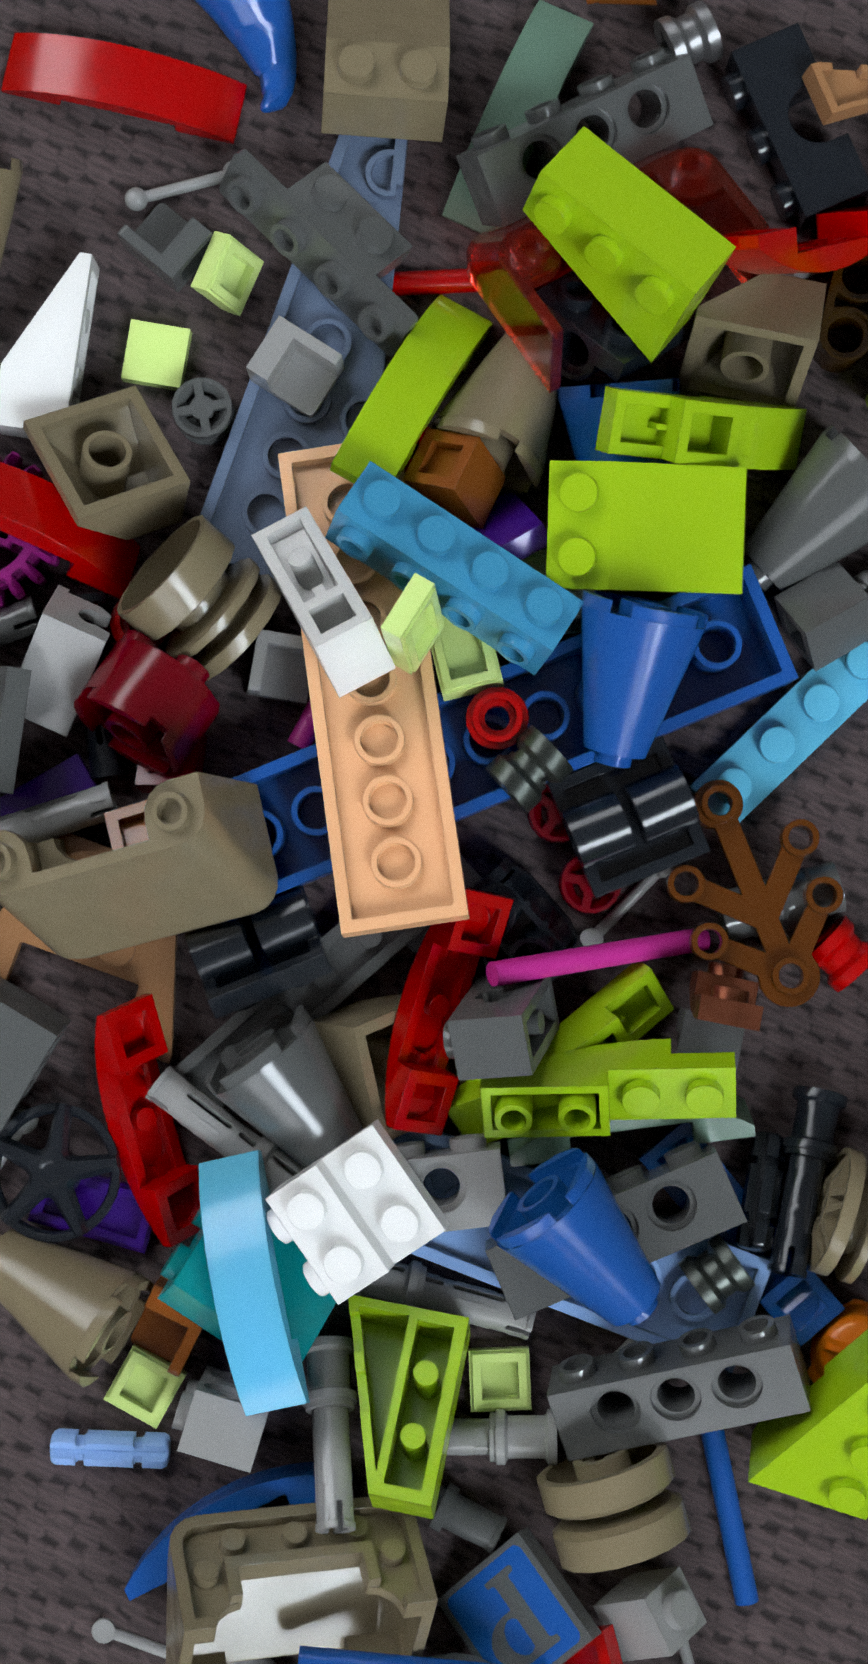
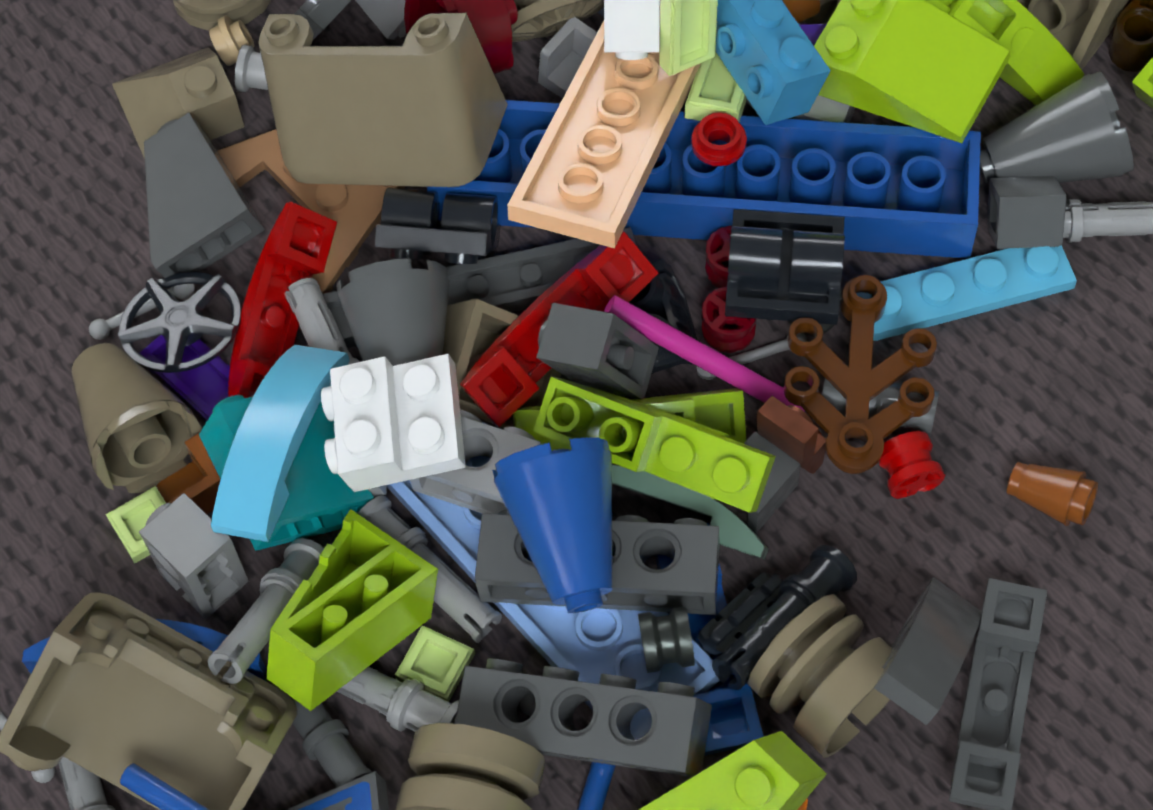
camera: 30 degrees right, 25 degrees down
(110, 1448) = (86, 557): light blue axle -> none
(527, 770) = (723, 178): pearl dark grey wheel -> none
(631, 670) = (845, 137): blue cone -> none

